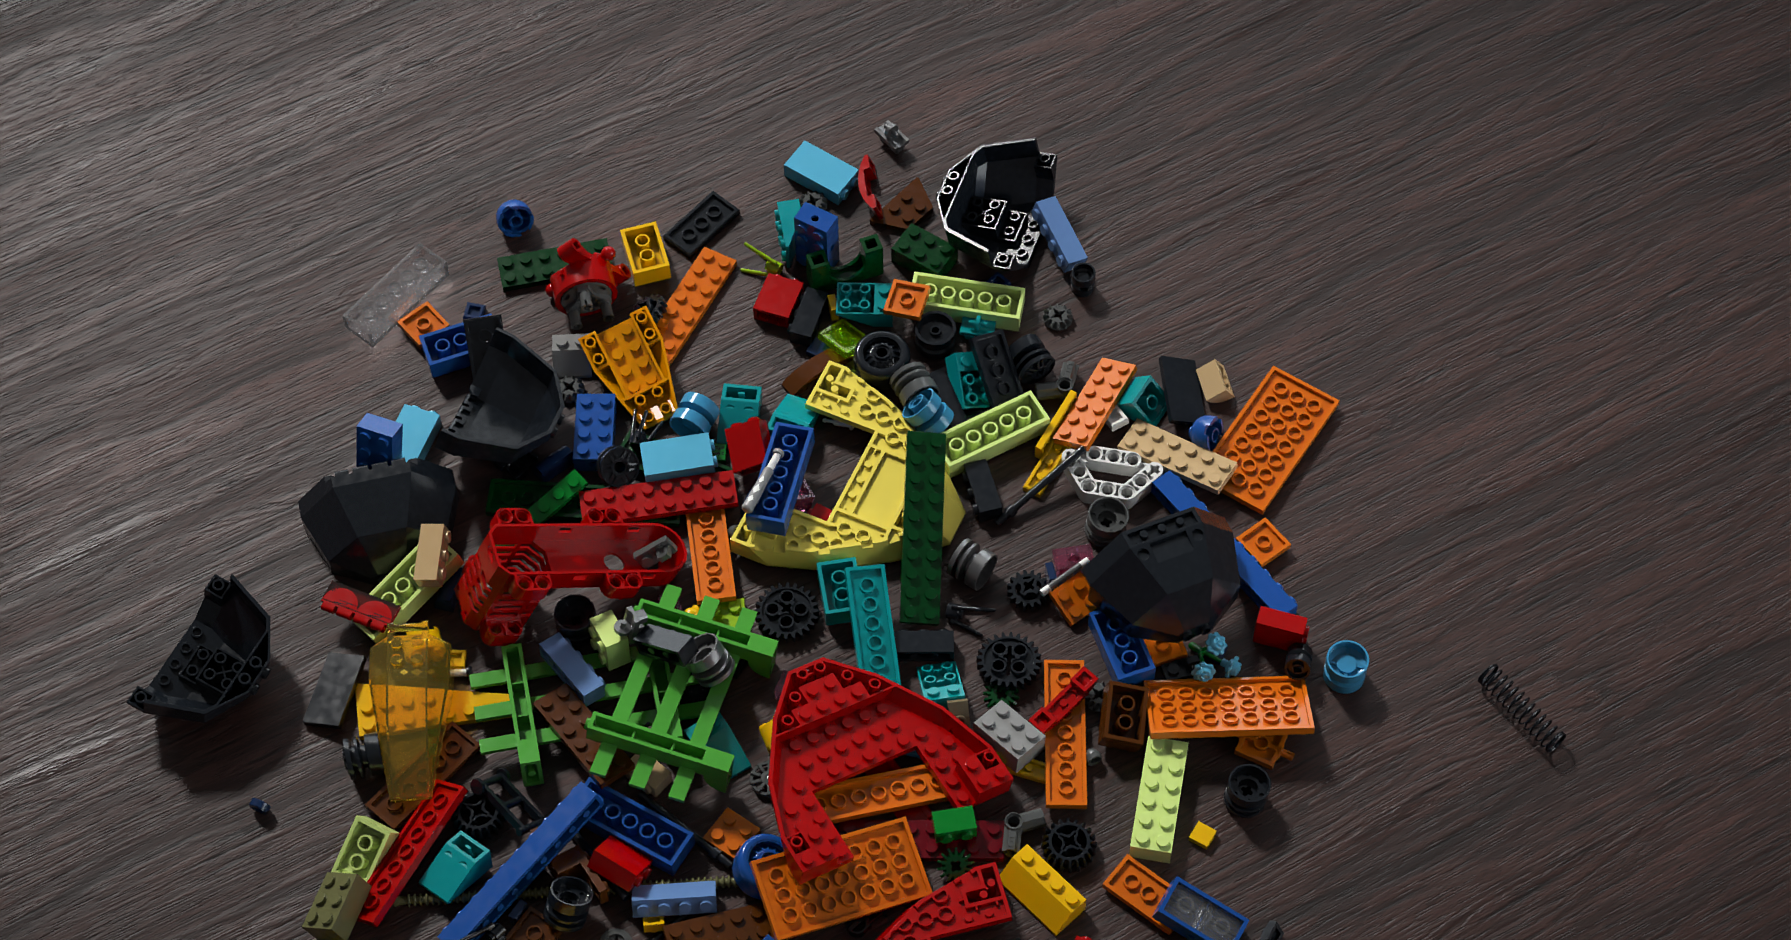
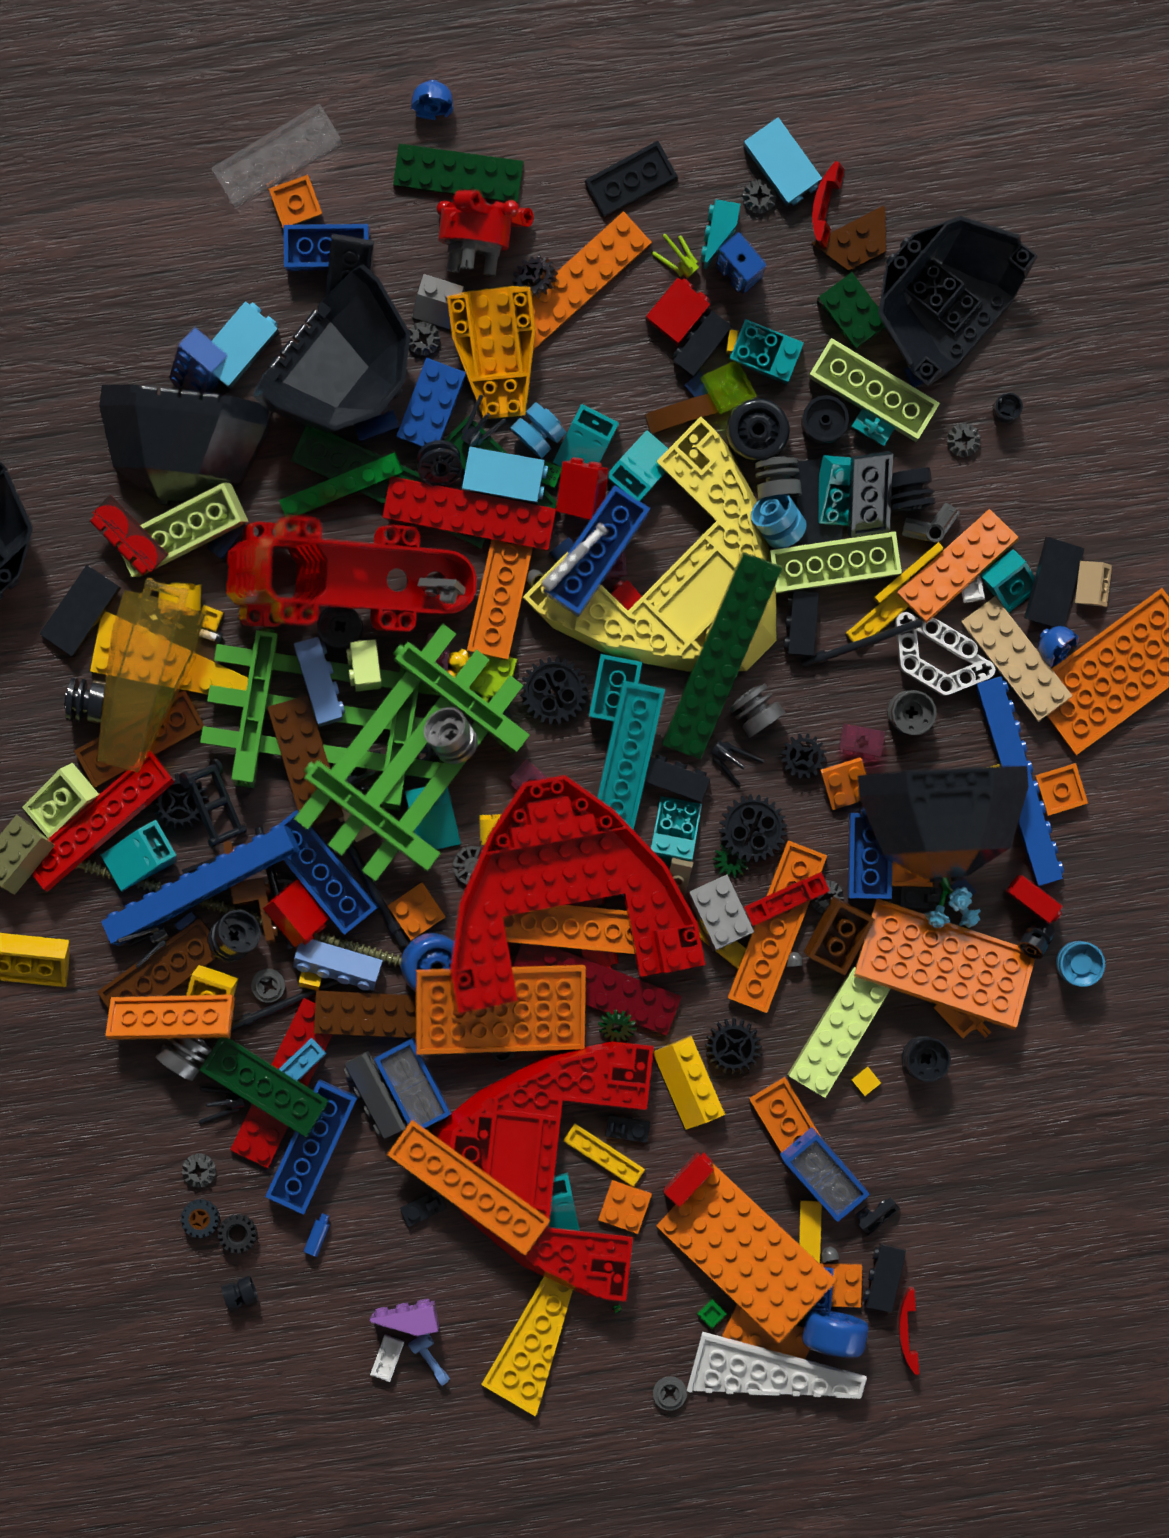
camera: 20 degrees right, 30 degrees up
(432, 555) = (214, 516): tan brick -> none
(474, 310) = (354, 204): dark blue tile -> none
(631, 624) = (386, 671): flat silver hips -> none
(645, 253) = (556, 201): yellow brick -> none
(666, 645) = (414, 708): black brick -> none
(866, 265) = (783, 303): dark green arch -> none
(892, 136) = (875, 143): flat silver hips -> none
(906, 299) = (808, 375): orange plate -> none
(954, 824) = (630, 989): green brick -> none
(1012, 835) = (703, 1006): dark grey piece -> none
(1050, 572) = (832, 747): dark blue tile -> none
(1058, 233) = (1004, 343): medium blue brick -> none
(1064, 577) = (844, 760): dark grey bar -> none

